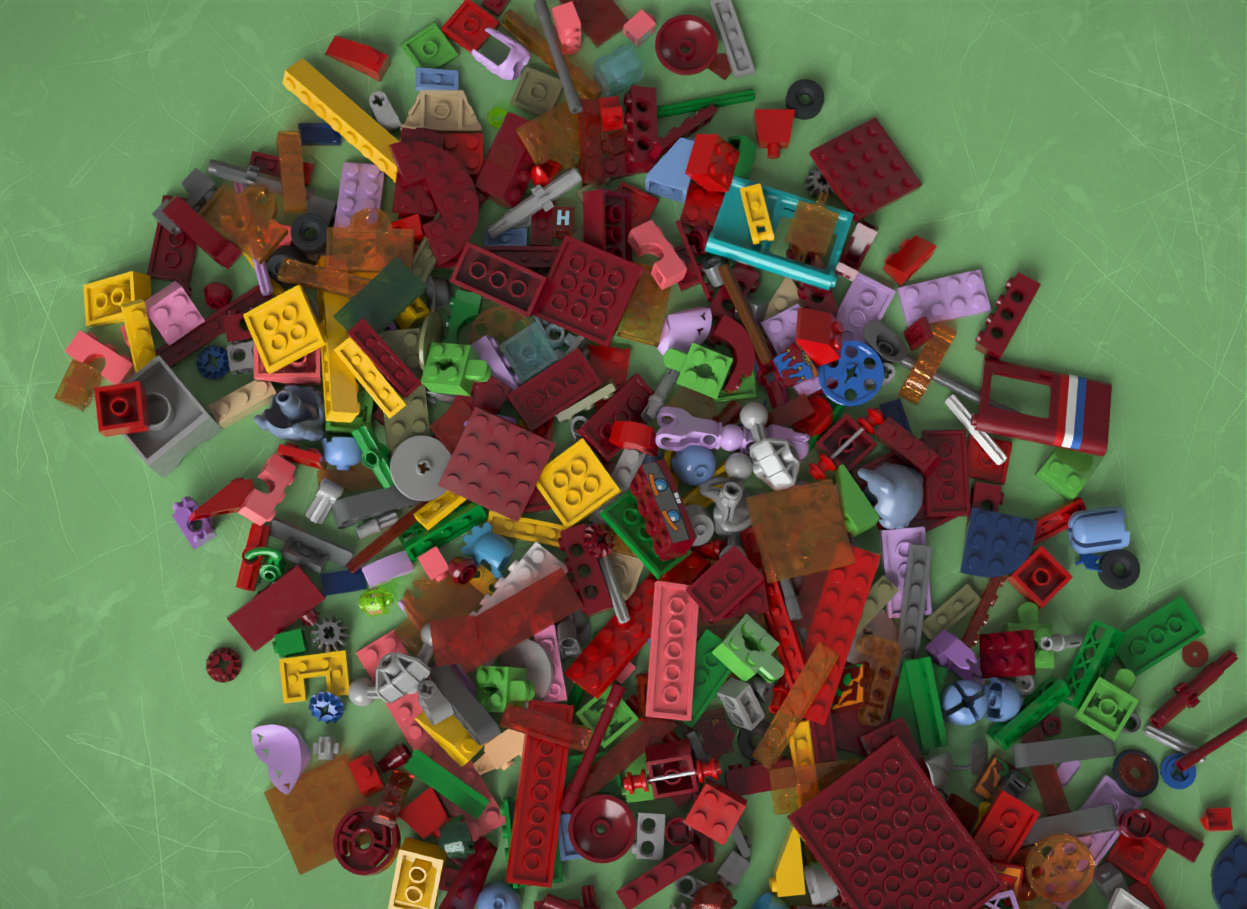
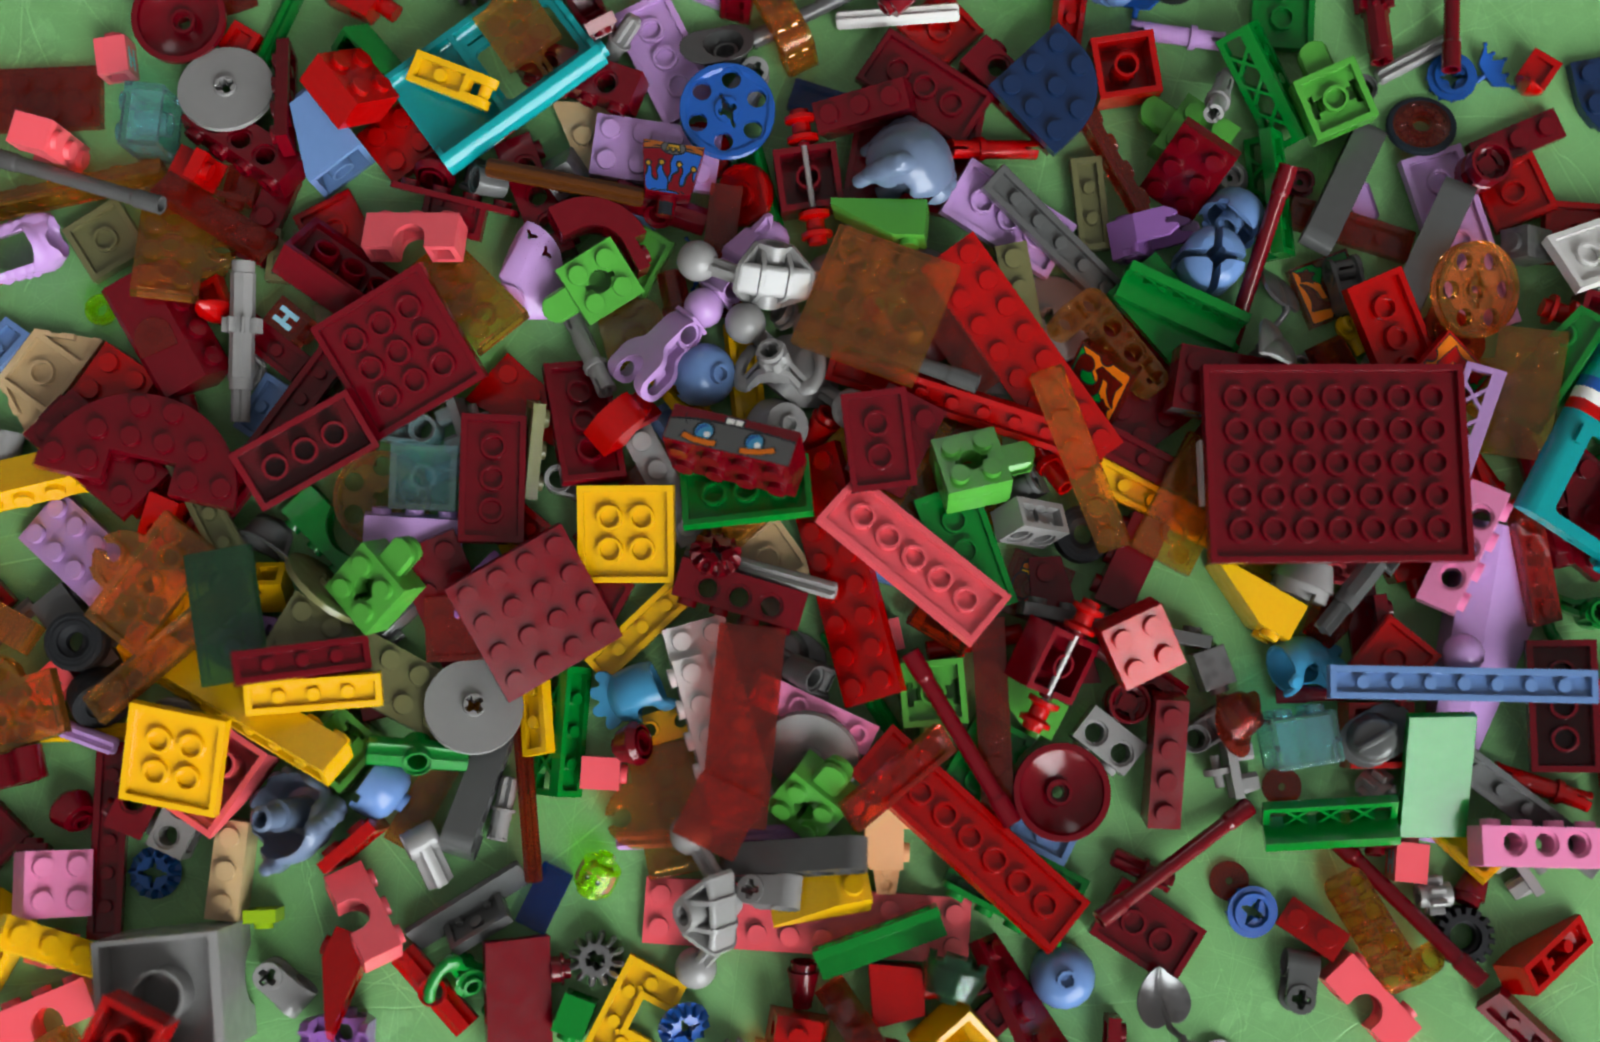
camera: 50 degrees left, 5 degrees up
(199, 478) = (287, 989): none -> light grey piece
(229, 436) = (264, 916): none -> lime plate
(387, 568) = (566, 833): lavender slope -> none
(652, 88) = (206, 102): none -> light grey piece
(697, 86) = (241, 37): none -> red plate
(759, 486) = (784, 317): none -> light grey plate
(819, 335) = (656, 112): red slope -> none
(849, 287) = (620, 40): none -> light grey axle
(933, 528) = (983, 149): none -> red pin
(1031, 713) = (1280, 191): none -> dark red piece
(1084, 595) = (1181, 36): none -> lavender pin
(1201, 792) = (1492, 69): none -> blue piece

